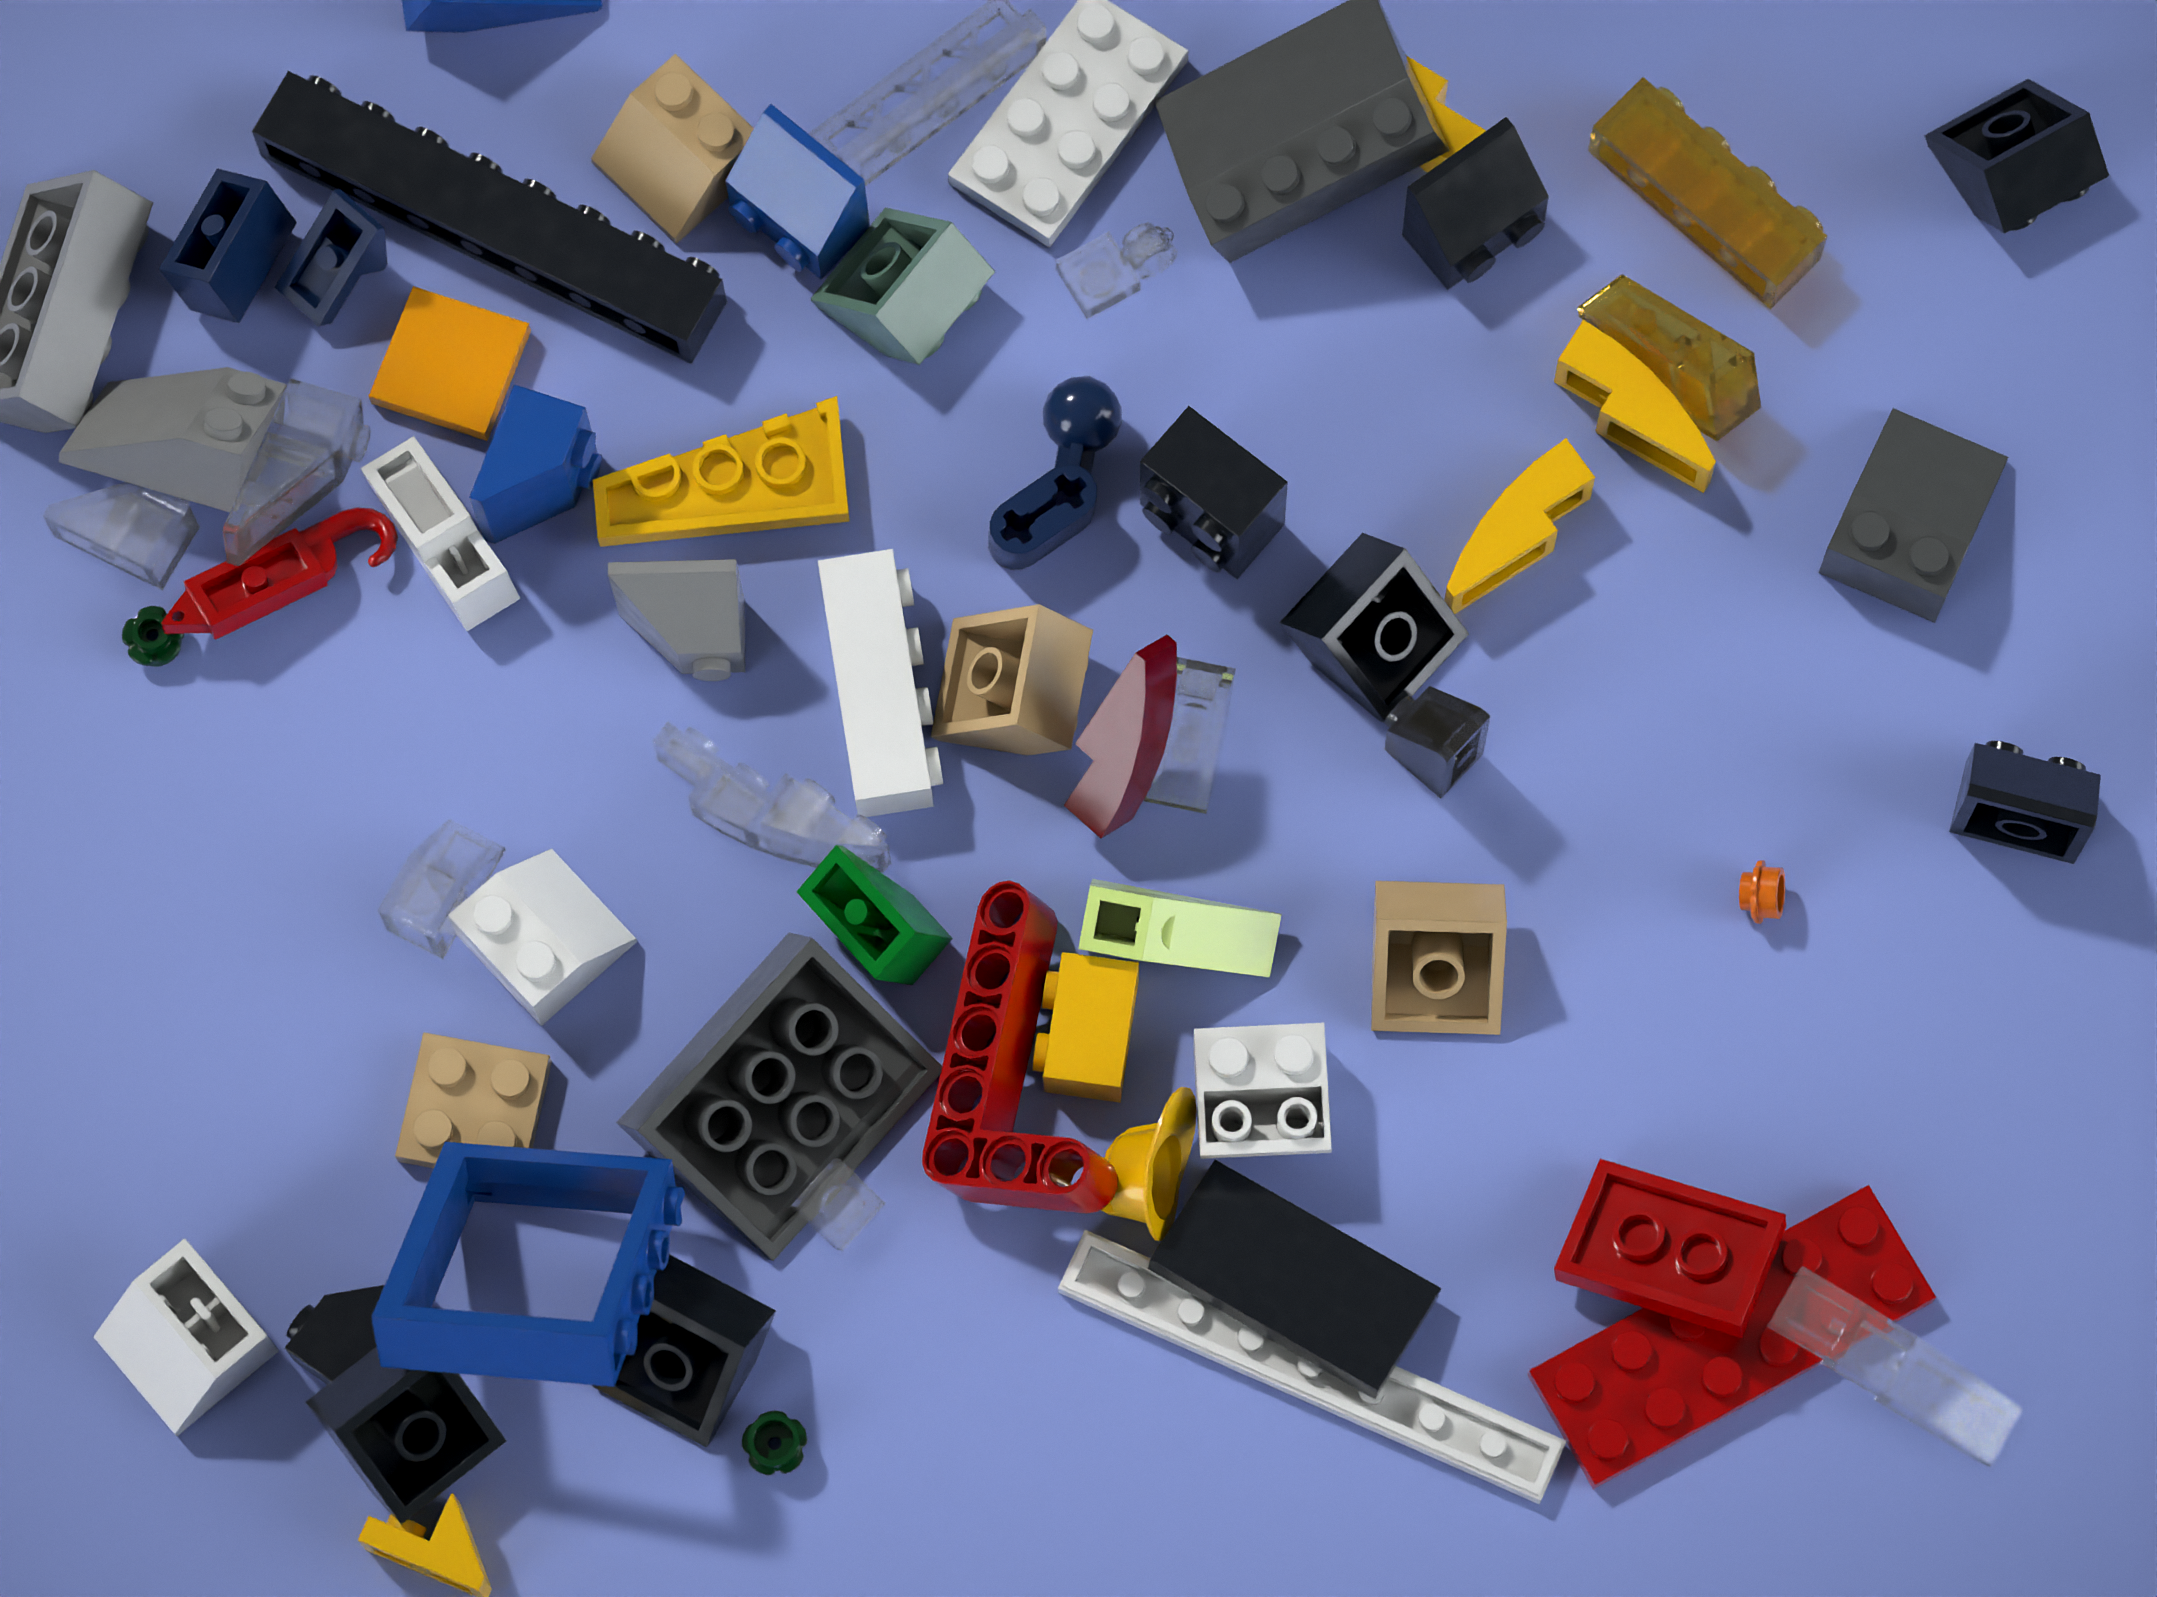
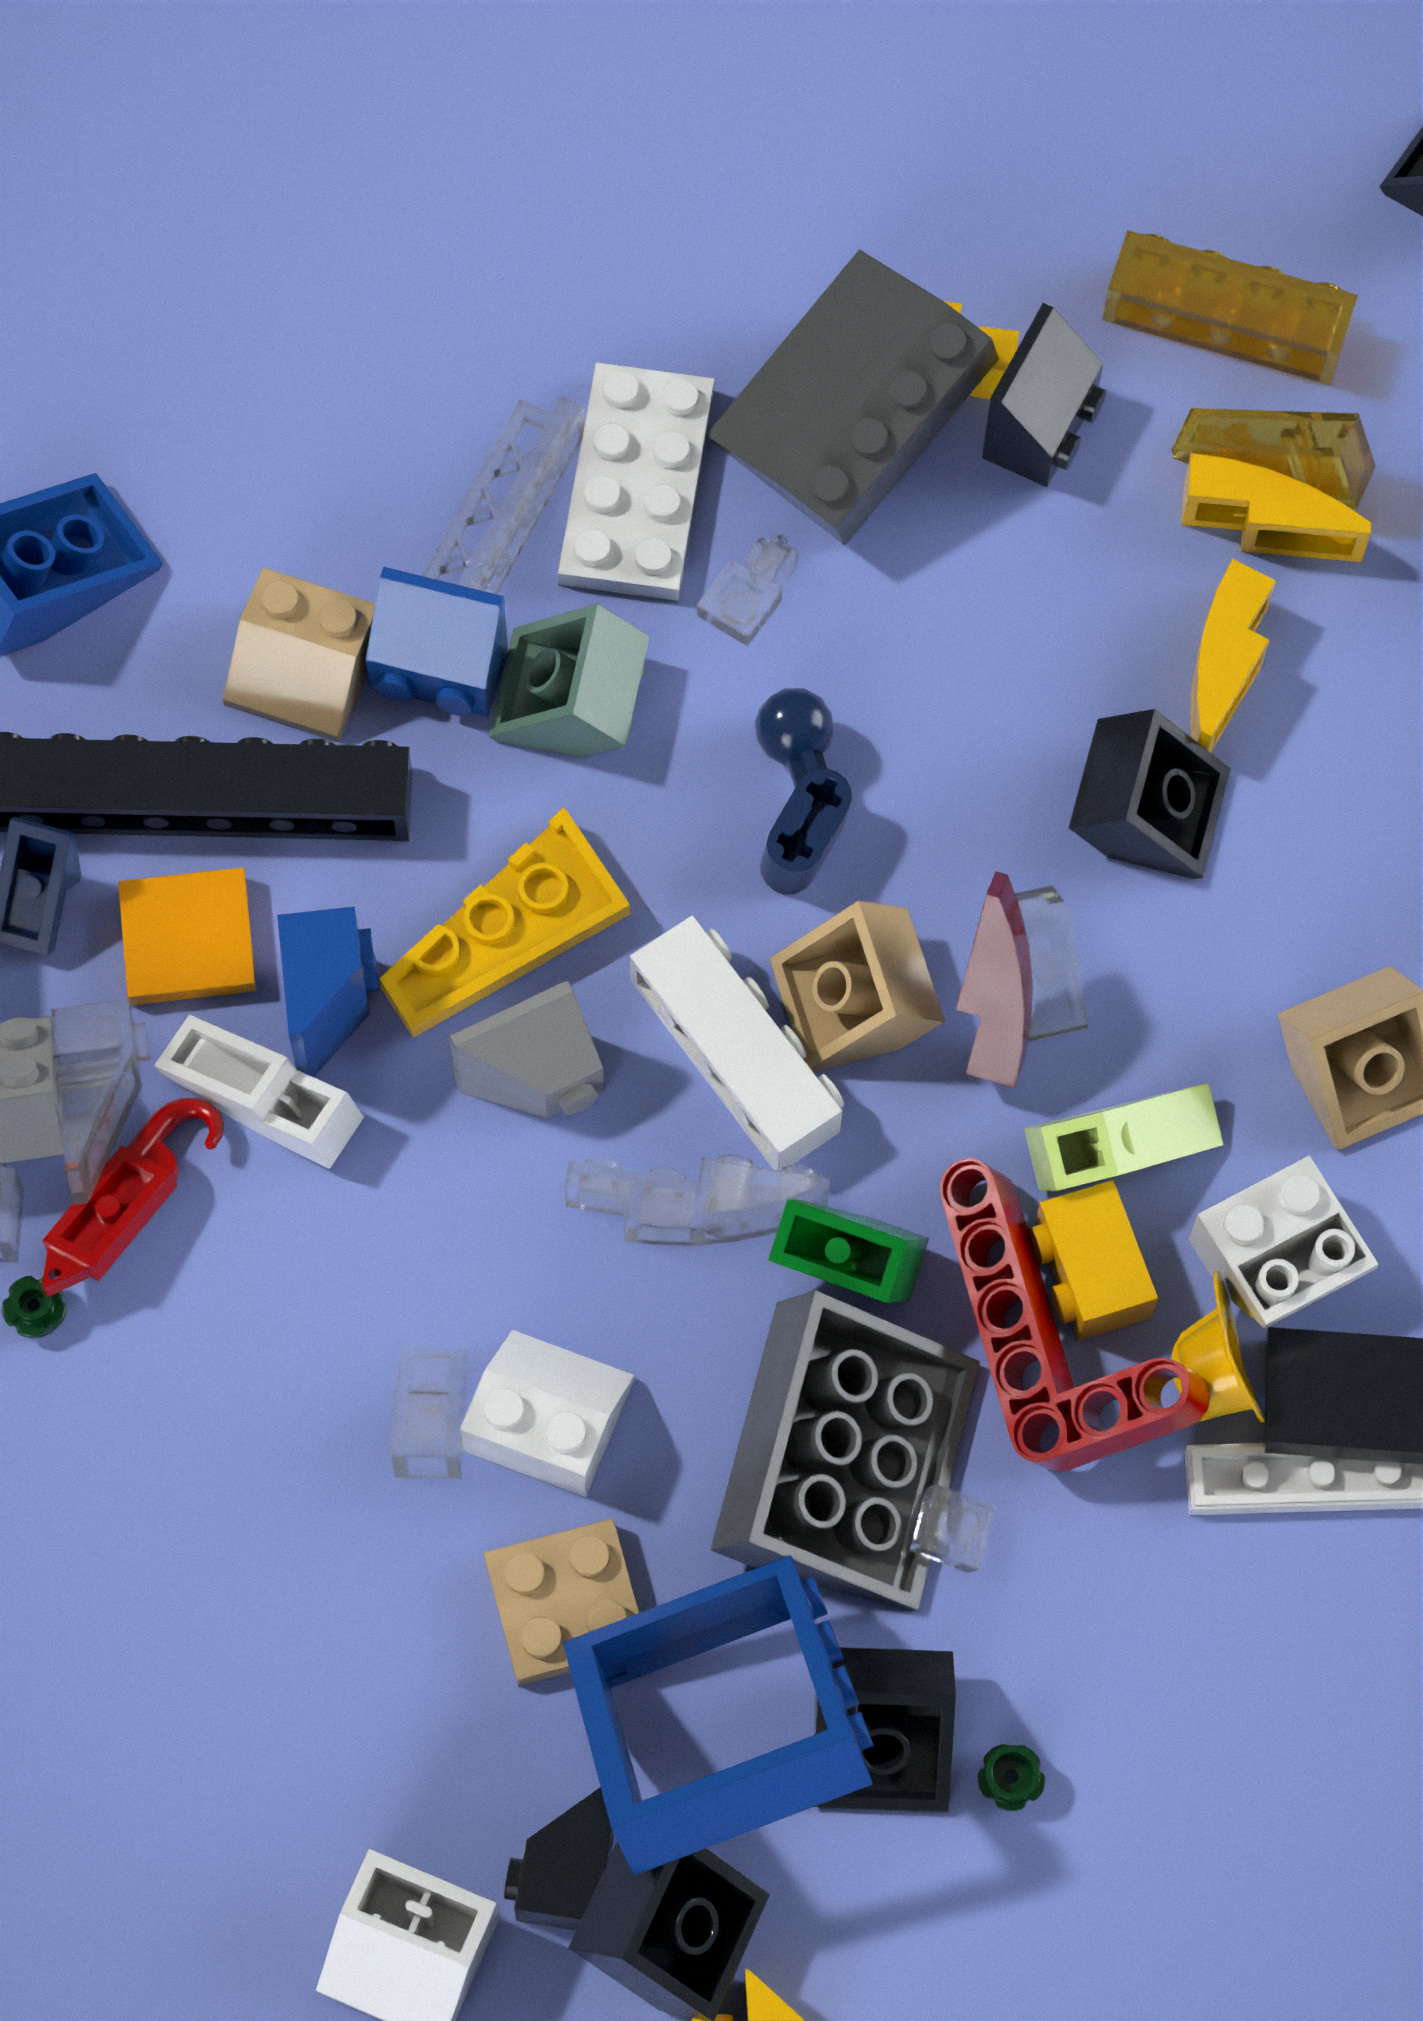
camera: 30 degrees left, 5 degrees down
(1211, 494) = (951, 740): black brick -> none
(1436, 737) = (1261, 864): clear smoke slope -> none

